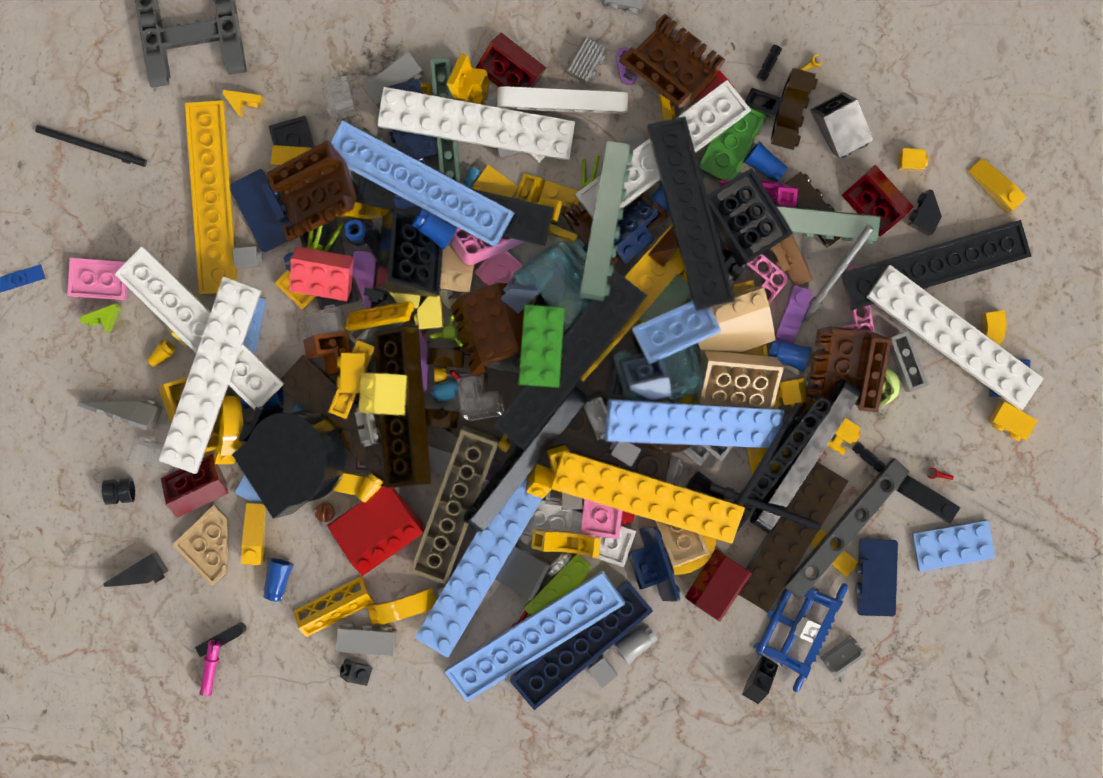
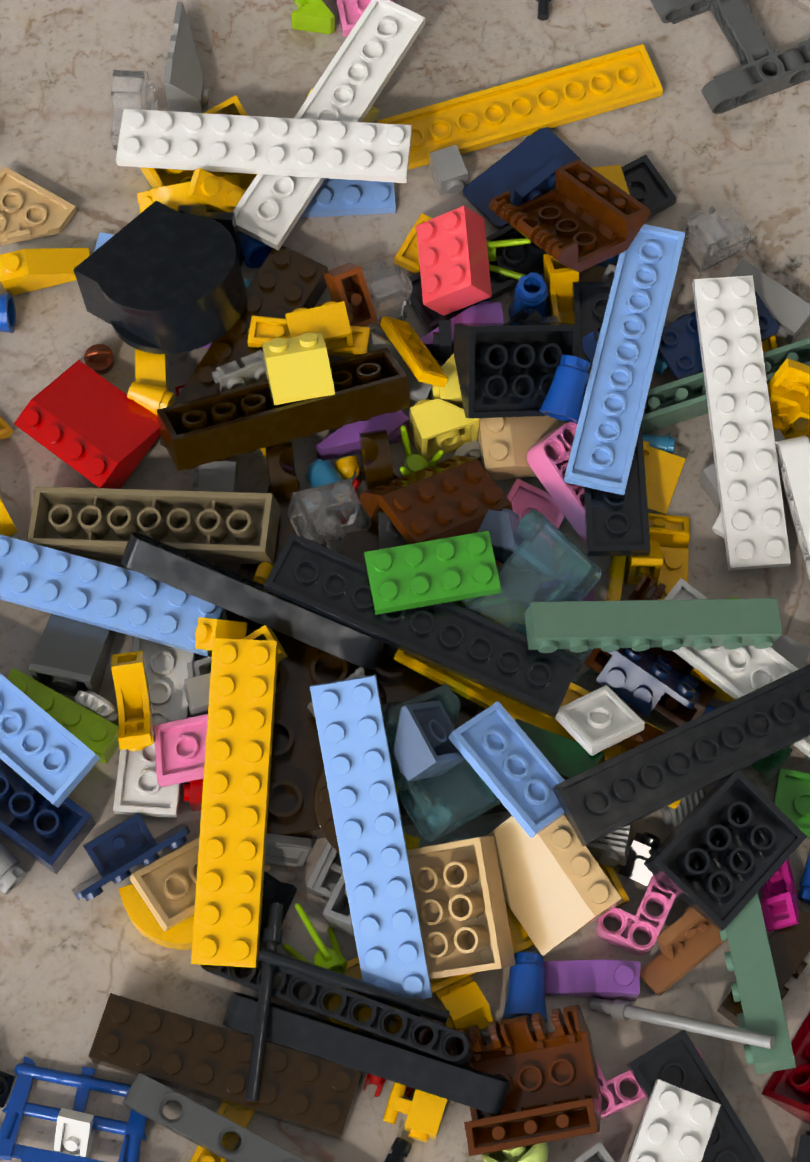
camera: 70 degrees right, 20 degrees down
(122, 490) = (66, 81): black wheel -> none
(162, 352) = (281, 94): yellow cone -> none
(189, 491) = (94, 178): dark red slope -> none
(235, 414) = (214, 191): none -> yellow plate
(239, 99) = (669, 112): yellow slope -> none
(624, 451) = (299, 749): light grey brick -> none
(654, 269) = (599, 720): none -> white plate
(718, 585) = (117, 961): dark red slope -> none
(748, 464) = (324, 957): none -> lime plant

